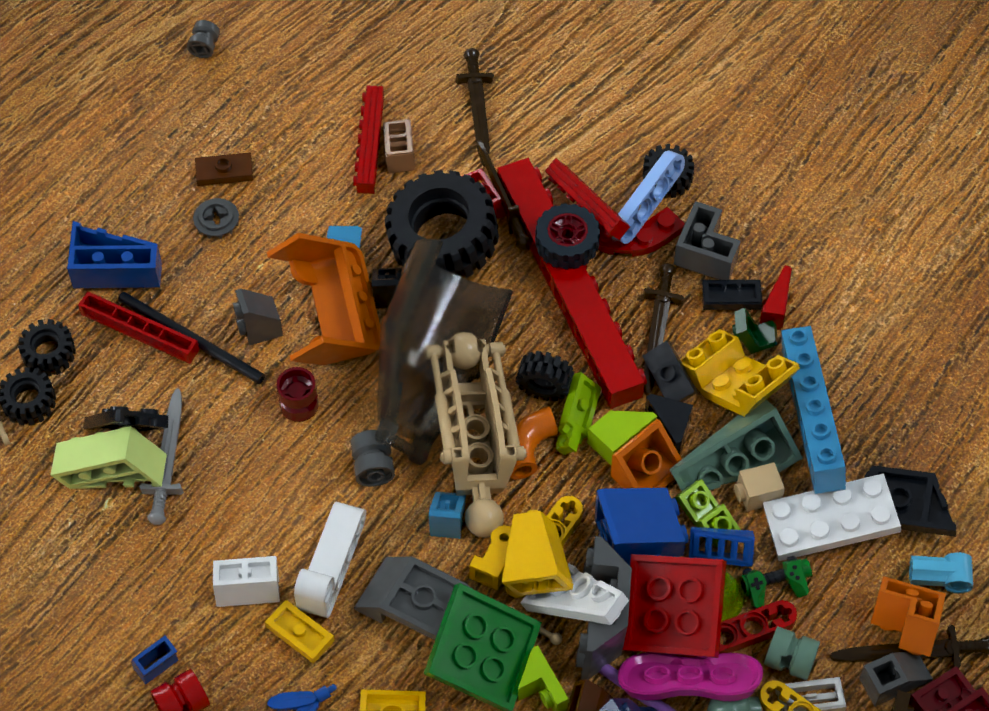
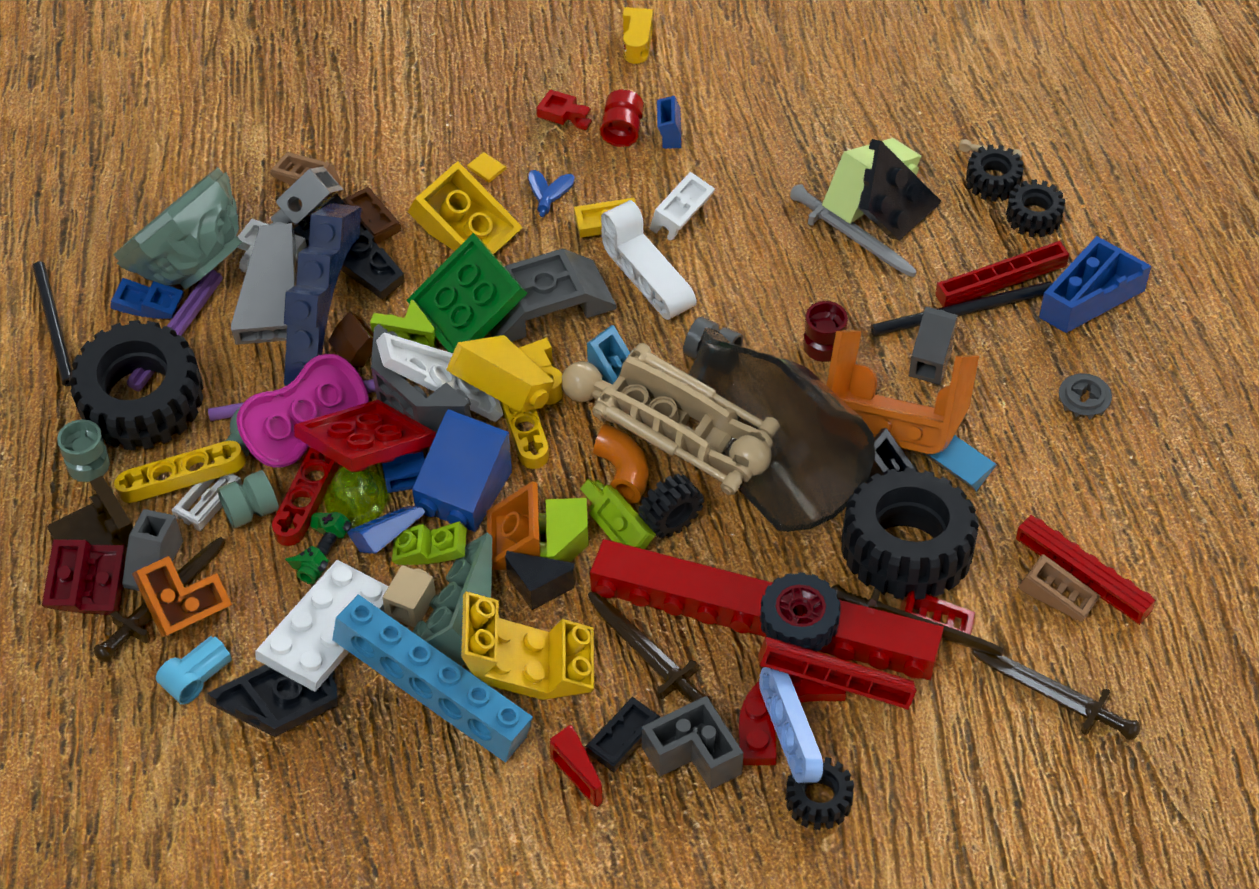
camera: 130 degrees right, 5 degrees down
(224, 169) = (1144, 436): reddish brown plate -> none
(669, 372) = (585, 610): black plate -> none
(754, 336) = (563, 708): dark green bracket -> none

